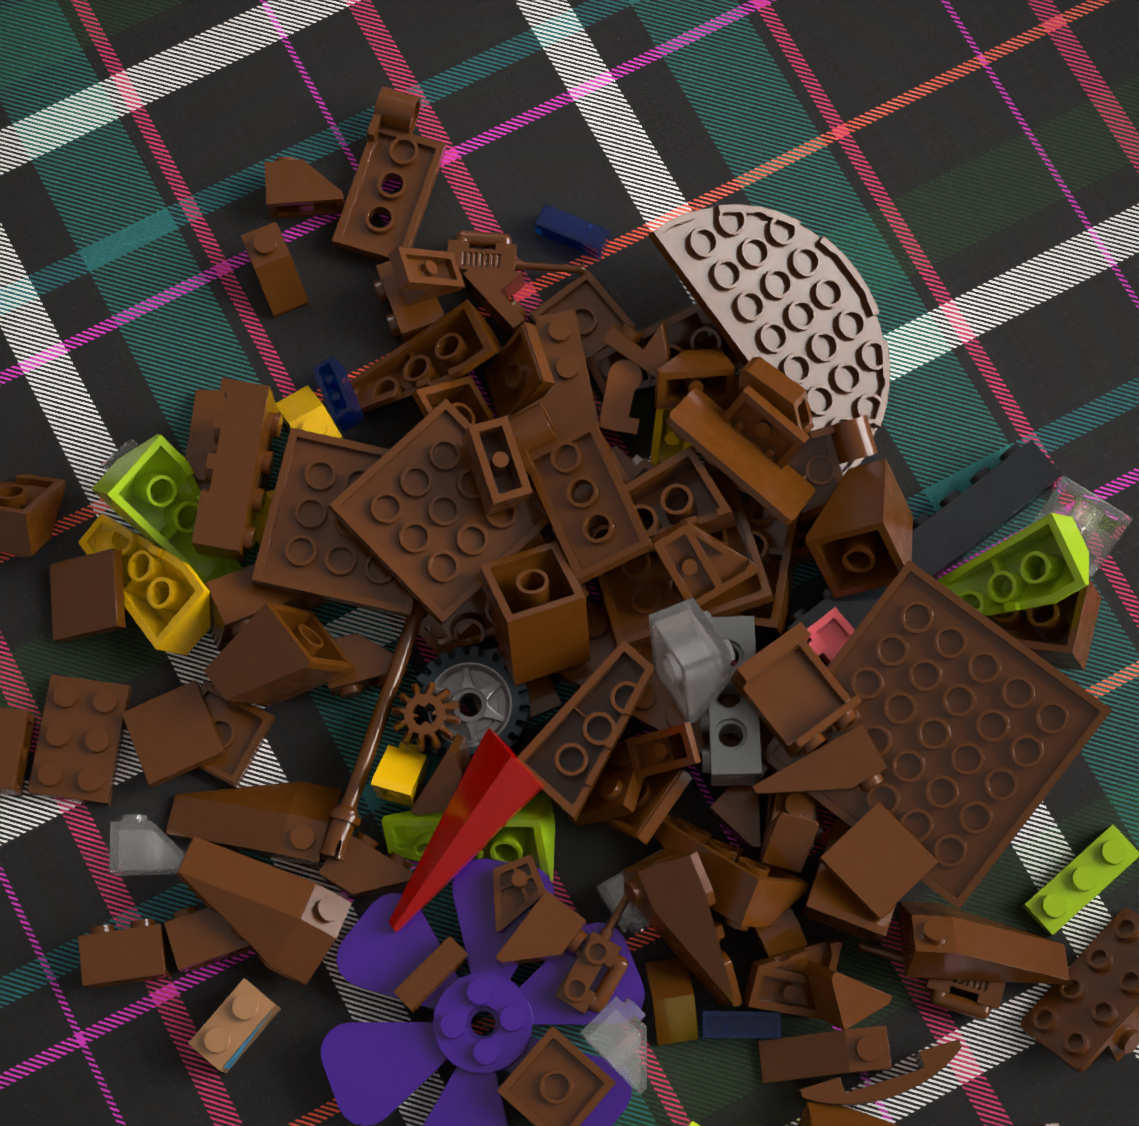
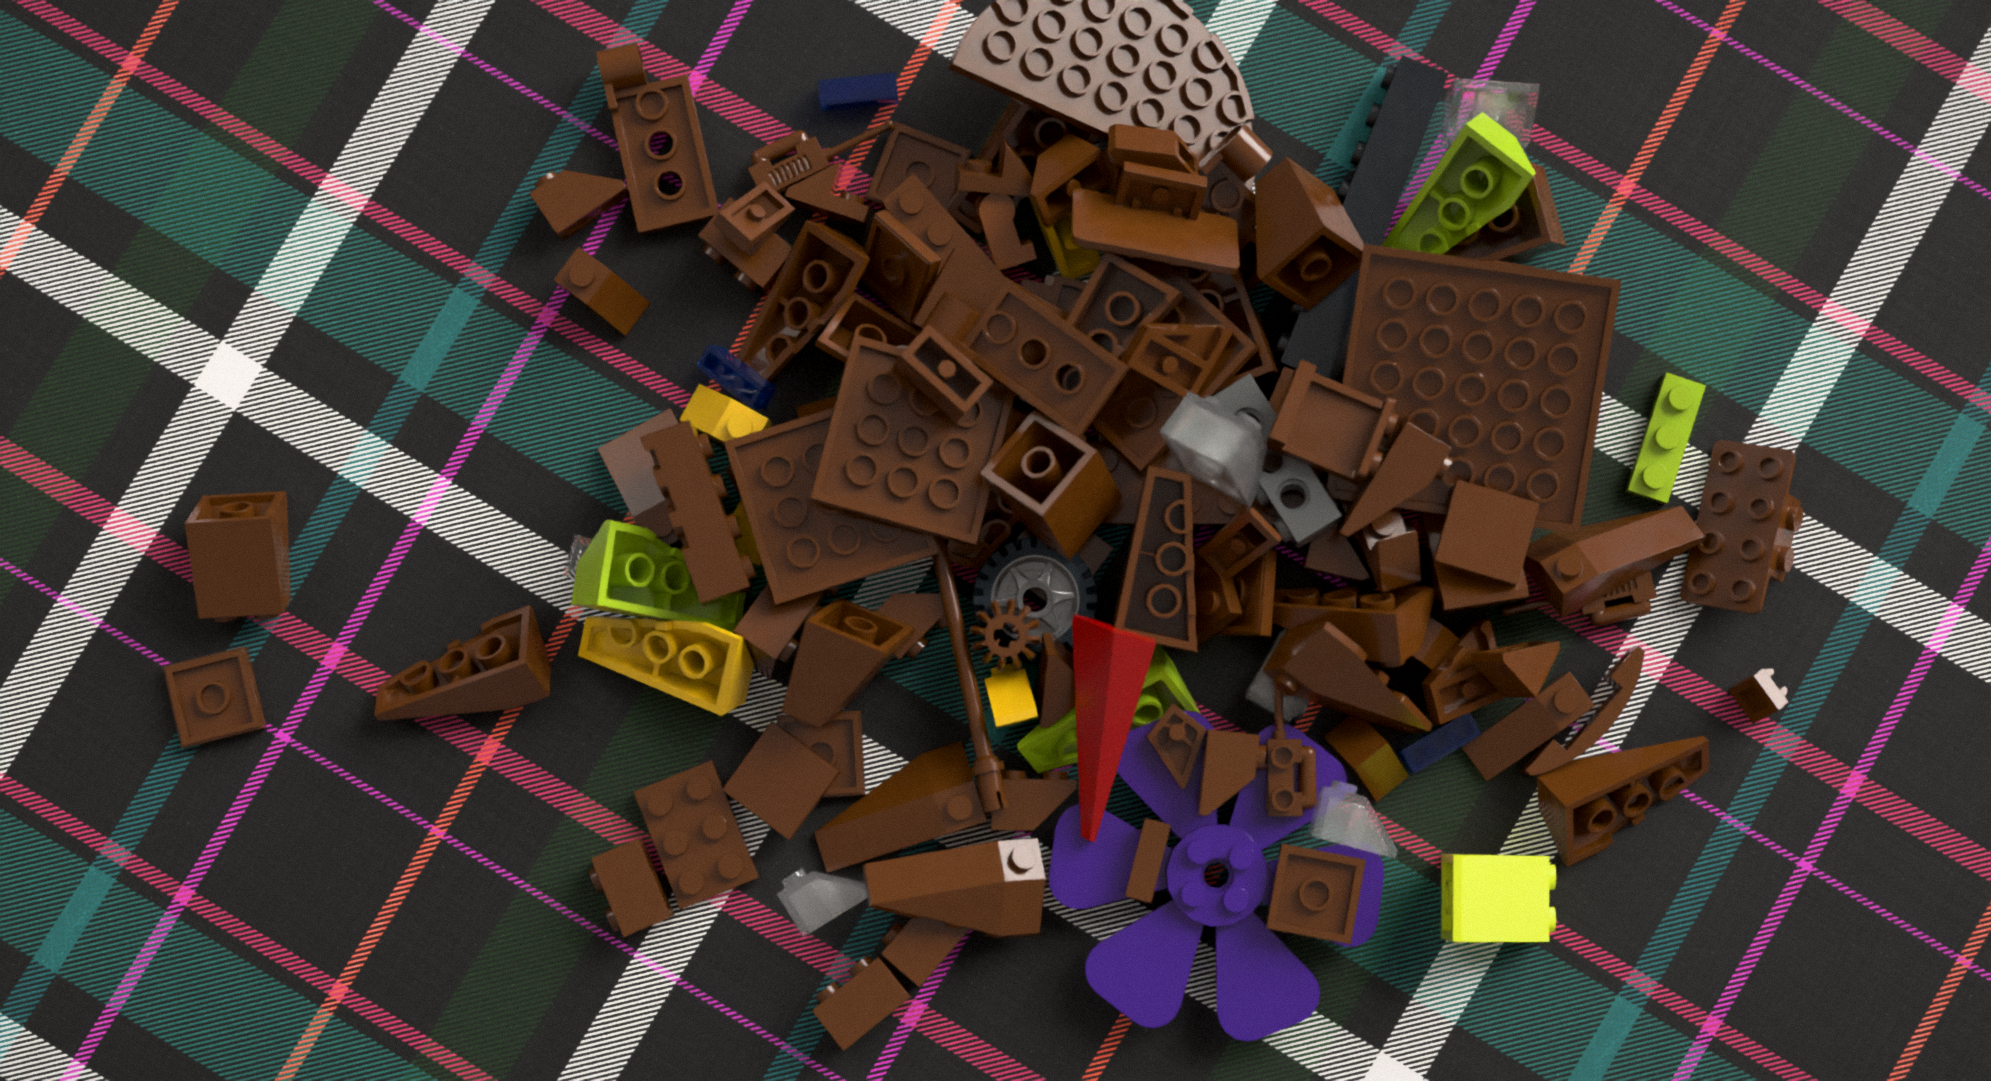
camera: 30 degrees left, 10 degrees up
(87, 595) = (622, 701): reddish brown tile -> none
(234, 1026) = (998, 1005): medium nougat brick -> none
(829, 635) = (1326, 349): coral plate -> none

